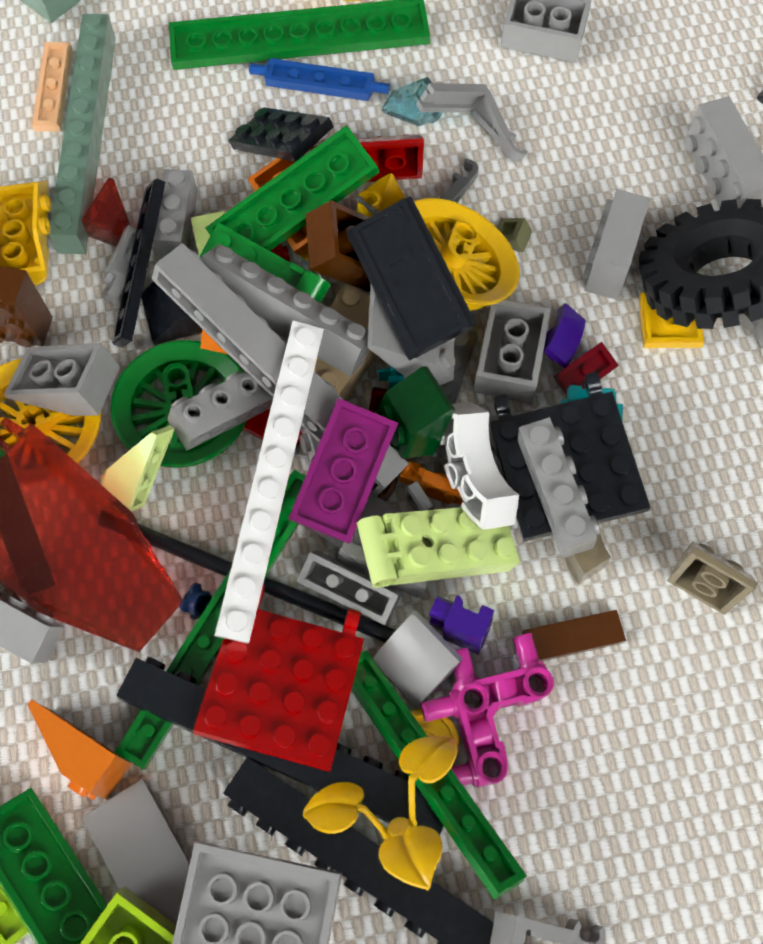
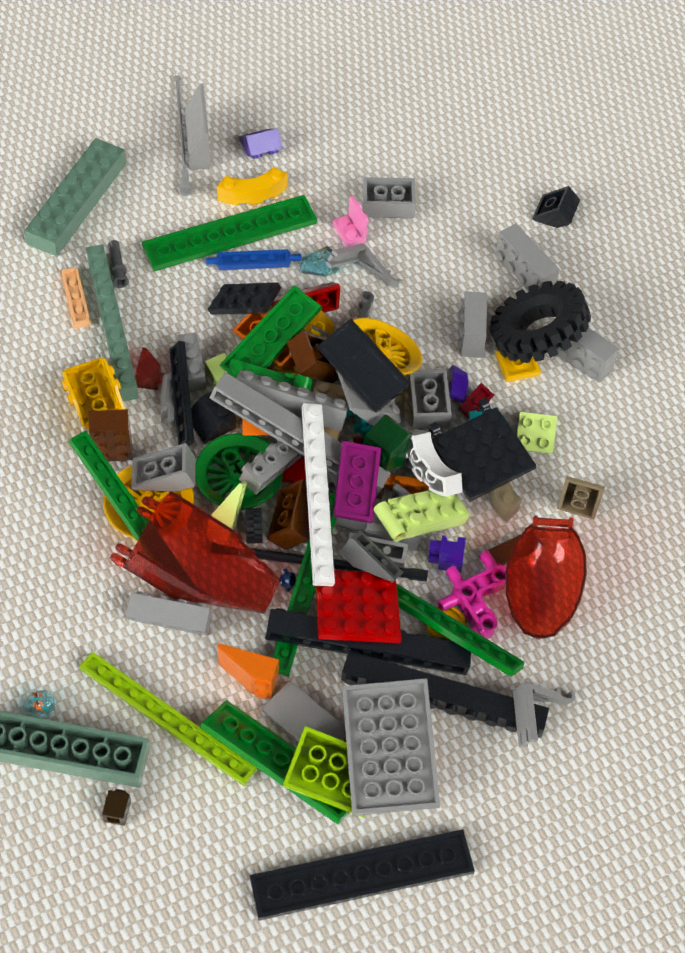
camera: 20 degrees left, 10 degrees down
(123, 55) = (118, 270): none -> dark grey pin
(172, 499) = (253, 525): none -> black tyre
(223, 506) = (290, 517): none -> reddish brown brick
(325, 609) = (369, 557): none -> dark grey slope
(409, 849) = (452, 663): yellow plant -> none
(417, 659) = (428, 578): light grey slope -> none
(478, 57) = (352, 227): none -> bright pink bracket
(516, 232) = (409, 328): olive slope -> none
(557, 488) = (481, 463): light grey brick -> none
(610, 721) = (546, 577): none -> clear red windscreen
(668, 443) = (537, 431): none -> yellowish green bracket

